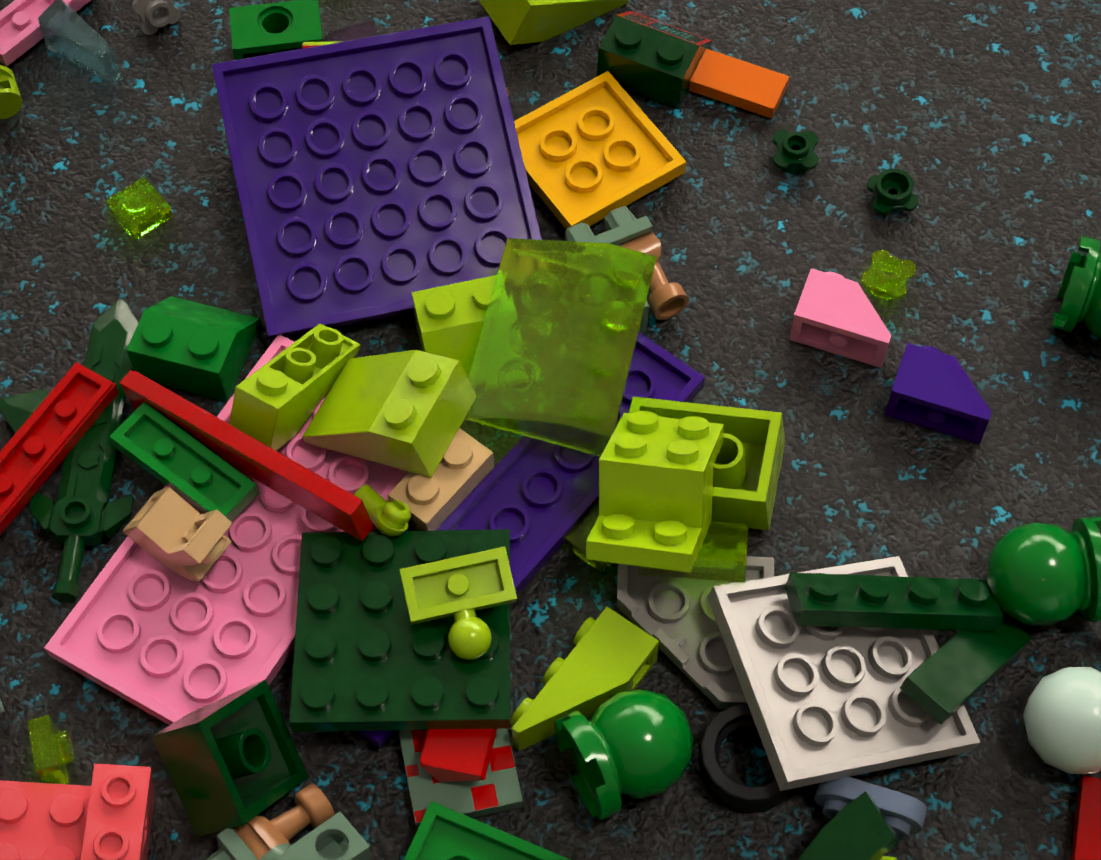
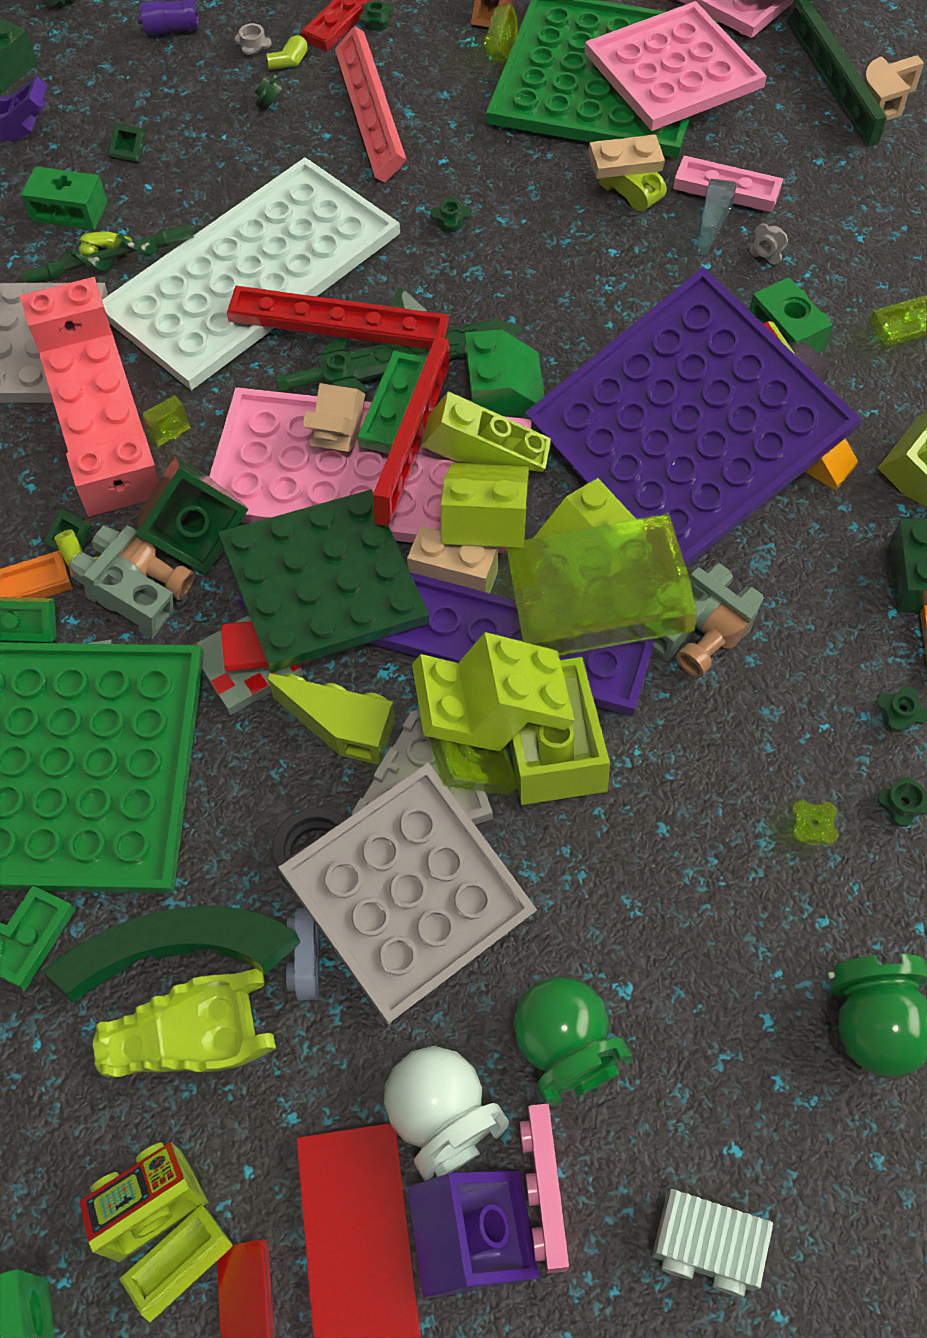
camera: 70 degrees right, 0 degrees up
(139, 208) = (599, 305): clear neon green plate -> none
(388, 517) = (403, 534): lime arm -> none
(458, 590) = (349, 588): lime plate -> none
(594, 152) = (809, 559): yellow plate -> none
(629, 748) = (283, 755): green tile -> none
(839, 319) = (745, 790): bright pink slope -> none
(892, 602) = (479, 910): dark green plate -> none
(937, 395) = (710, 891): dark purple slope -> none
(963, 668) = (452, 988): dark green tile -> none

